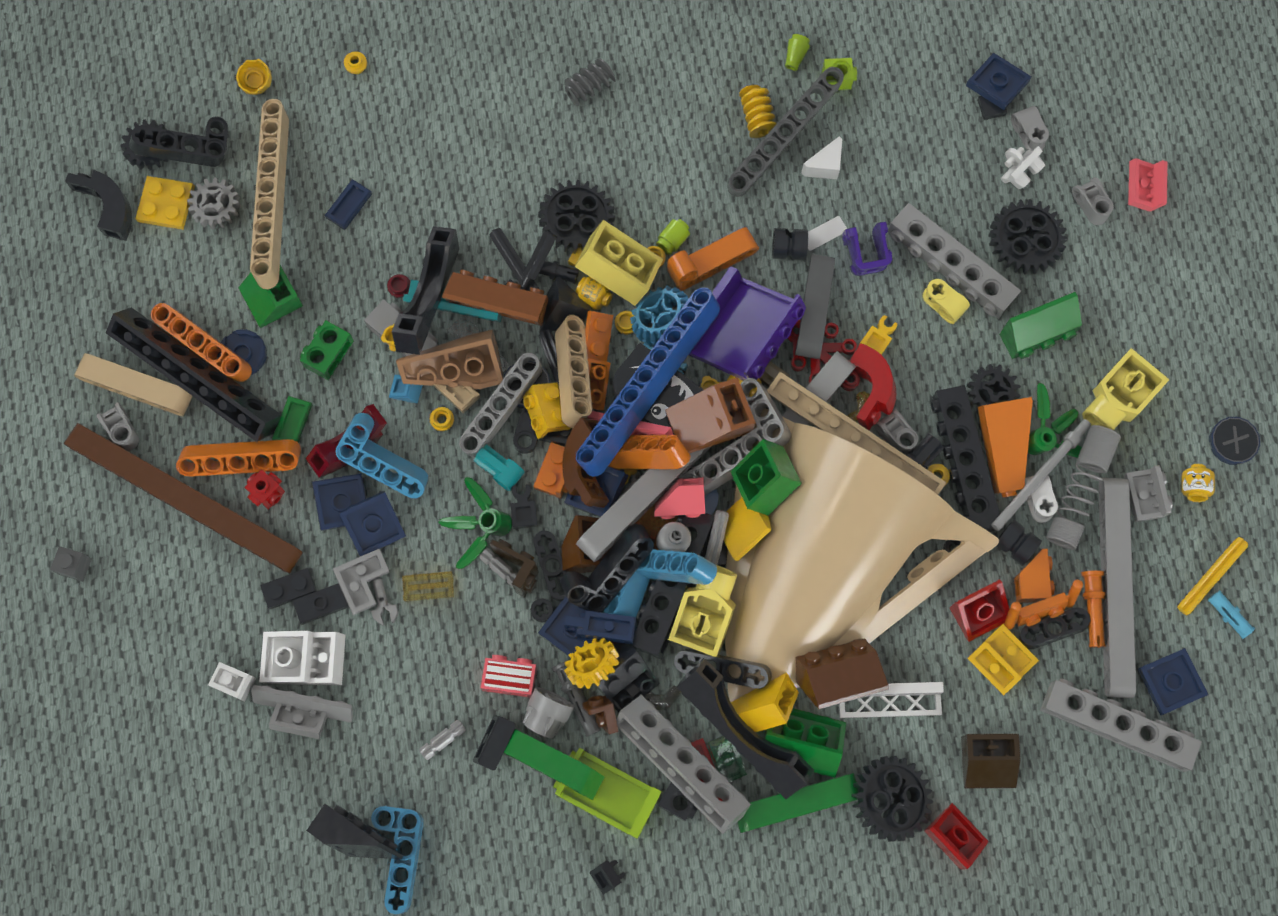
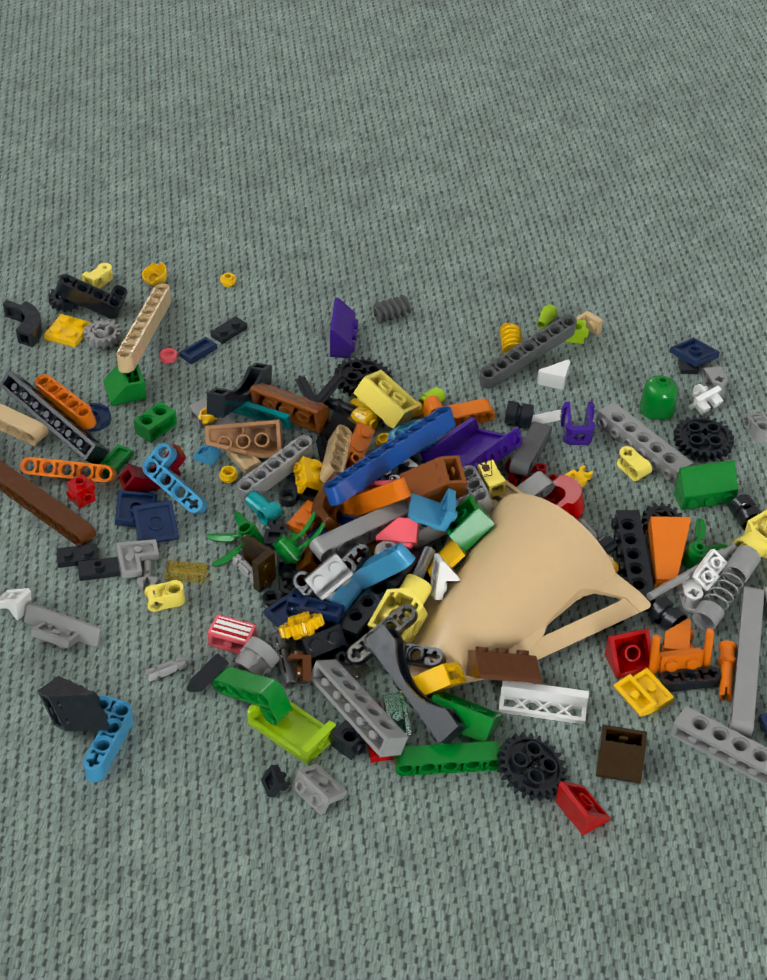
camera: 10 degrees right, 30 degrees down
(178, 95) = (99, 276): none -> light yellow leg
(302, 658) = (75, 596): white slope -> none
(311, 222) = (168, 355): none -> coral tile
(379, 158) = (228, 330): none -> black plate
(411, 635) = (166, 595): none -> light yellow piece
(534, 138) = (342, 330): none -> dark purple slope
(544, 538) = (287, 546): none -> green plant
(611, 587) = (329, 577): none -> light grey bracket
(657, 873) = (317, 788): none -> light grey bracket
(690, 654) = (407, 622): none -> black beam
(720, 470) = (433, 513): none -> dark azure bracket
(747, 560) = (440, 574): none -> white slope
(779, 388) = (492, 478): none -> light yellow leg
(860, 54) = (593, 322): none -> tan bracket
(964, 182) = (659, 398): none -> green cylinder
(1060, 468) = (708, 569): none -> white slope
(1090, 348) = (743, 509): none -> black wheel

